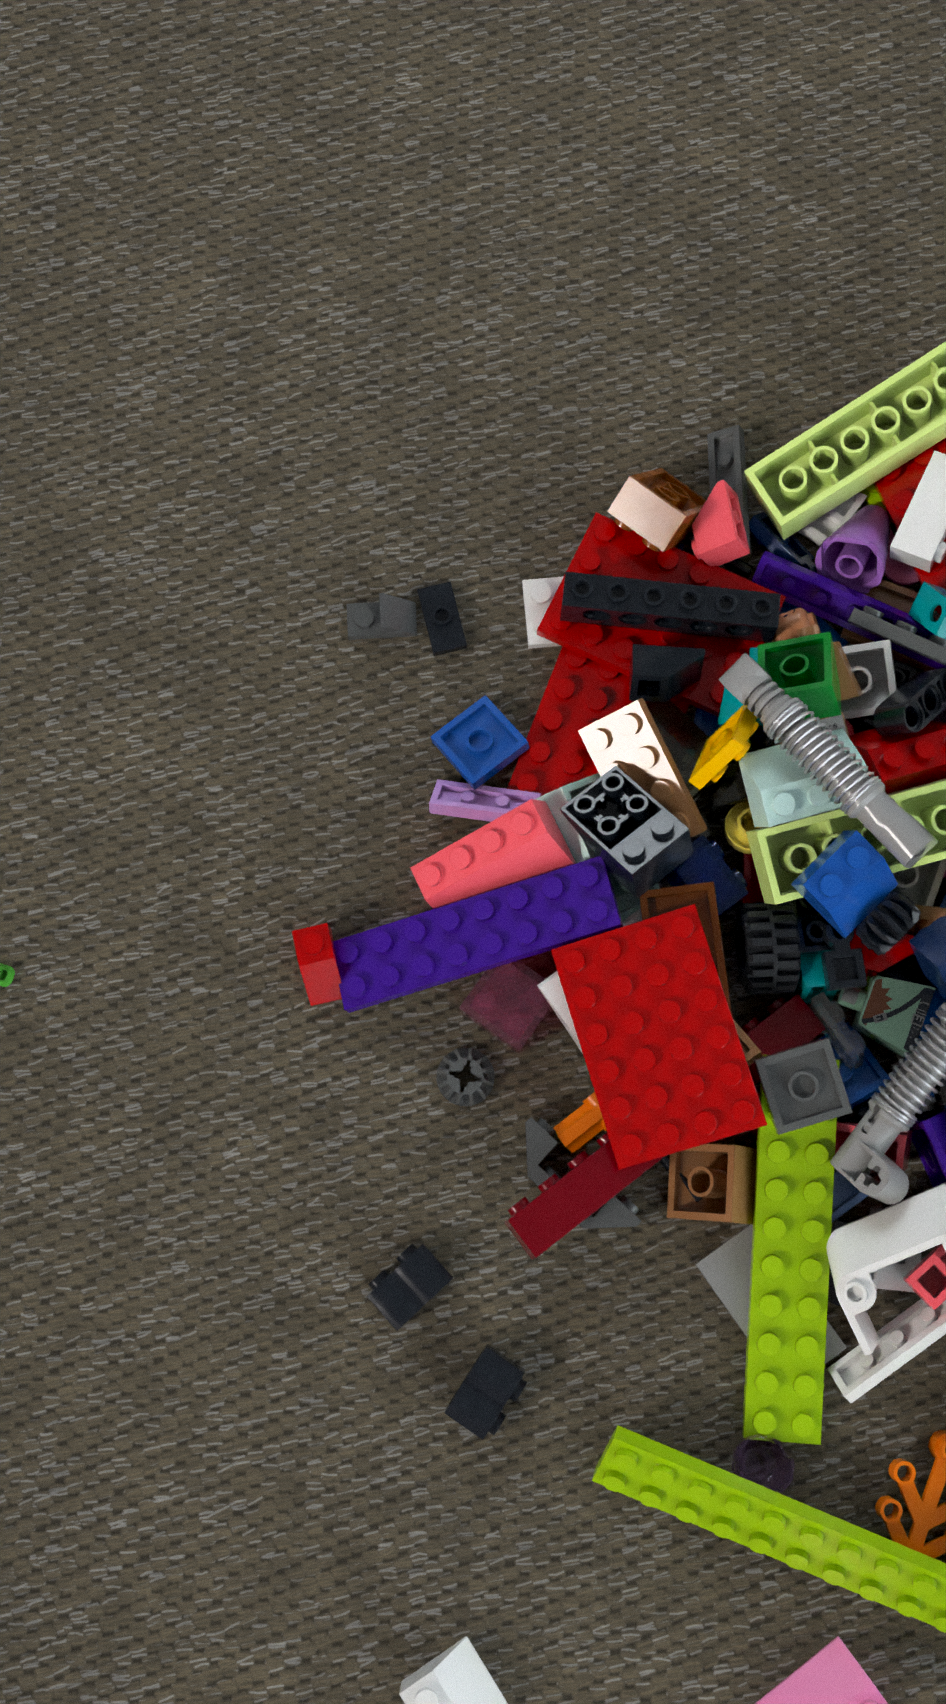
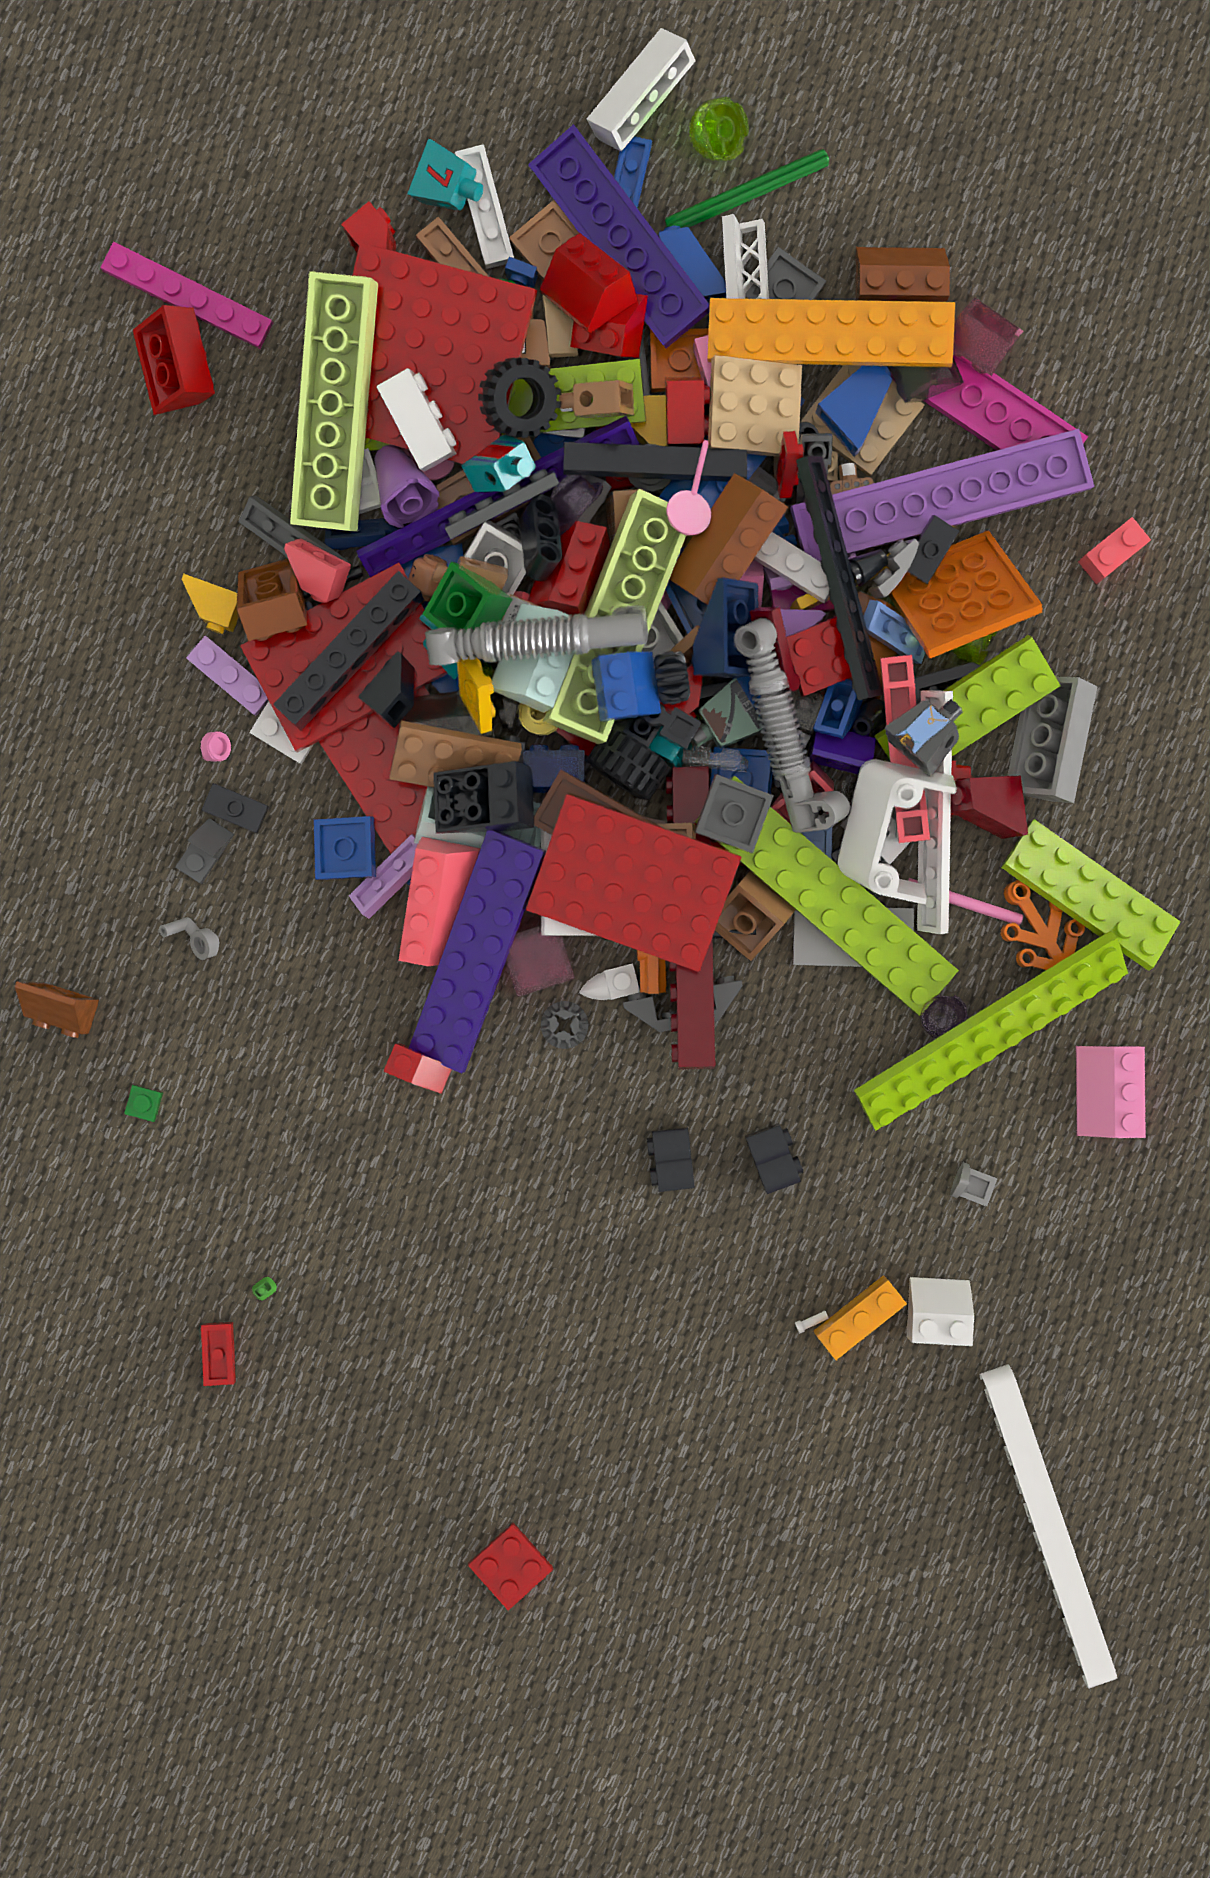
camera: 60 degrees left, 10 degrees up
(102, 734) = (143, 1103): none -> green plate
(136, 588) = (56, 1007): none -> dark orange slope
(295, 678) = (202, 941): none -> light grey plate
(345, 1561) = (809, 1322): none -> white piece
(386, 1613) = (860, 1317): none -> light orange brick
(485, 559) = (215, 746): none -> bright pink tile
(540, 1094) = (612, 984): none -> white plate
(560, 525) = (228, 675): none -> lavender plate
(611, 1633) = (973, 1185): none -> light grey tile
(614, 462) = (213, 604): none -> yellow slope
(807, 276) = (173, 359): none -> red slope
(872, 250) = (183, 292): none -> dark pink plate
(903, 1423) = (983, 907): none -> bright pink bar

